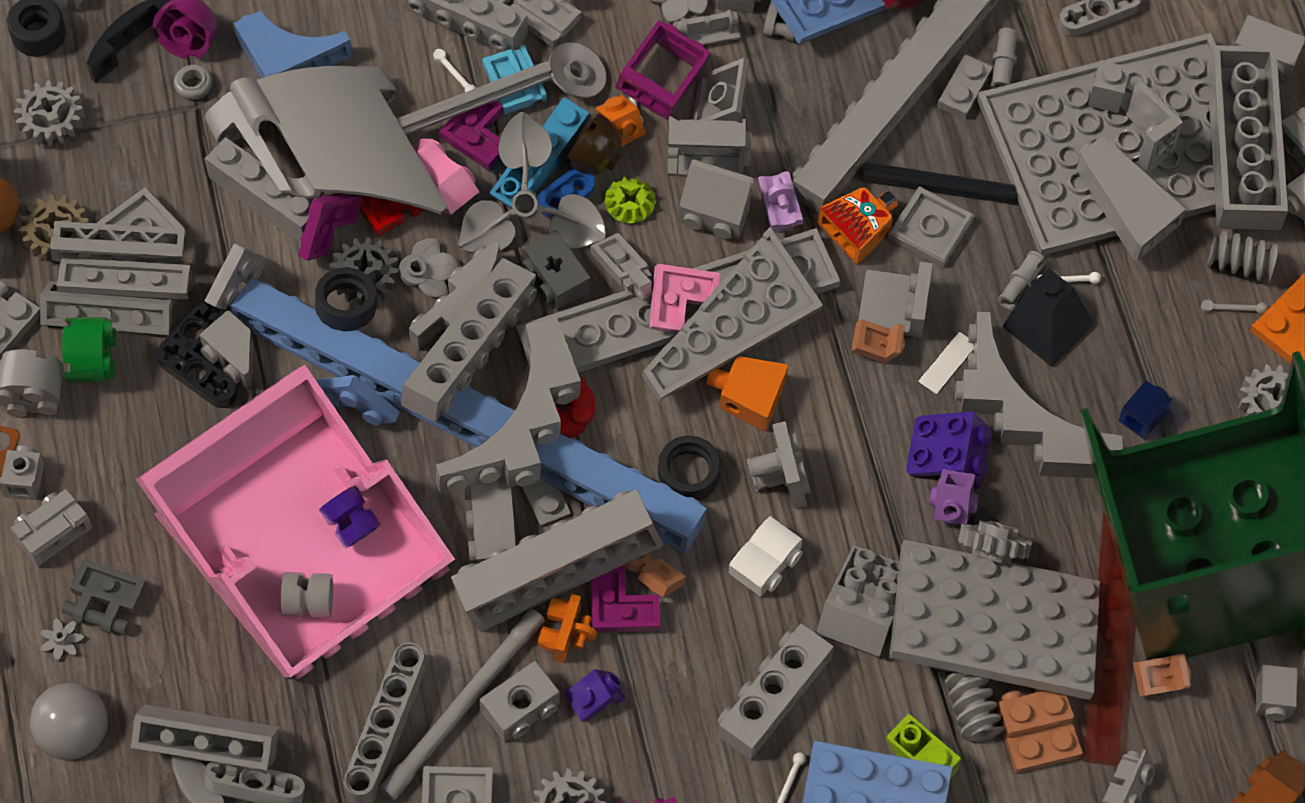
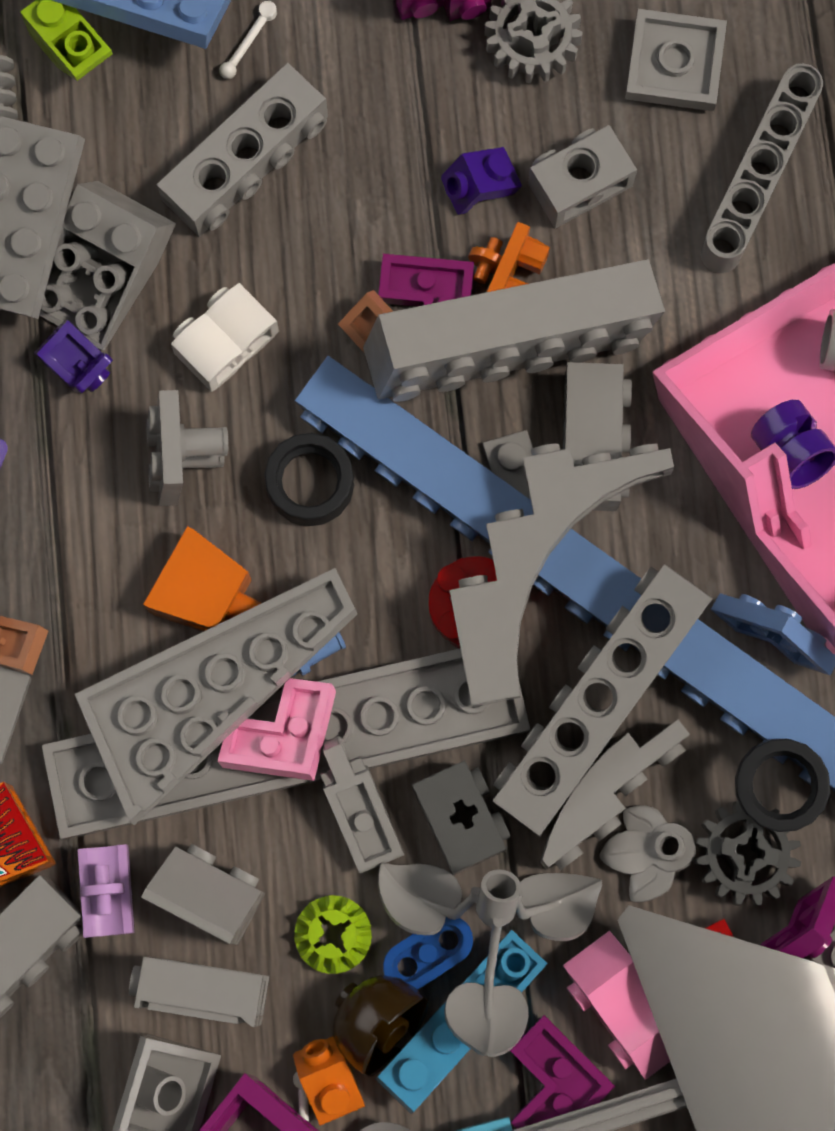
camera: 170 degrees left, 15 degrees up
(405, 771) = (738, 110): light grey piece -> none
(869, 528) = (74, 358): none -> dark purple bracket

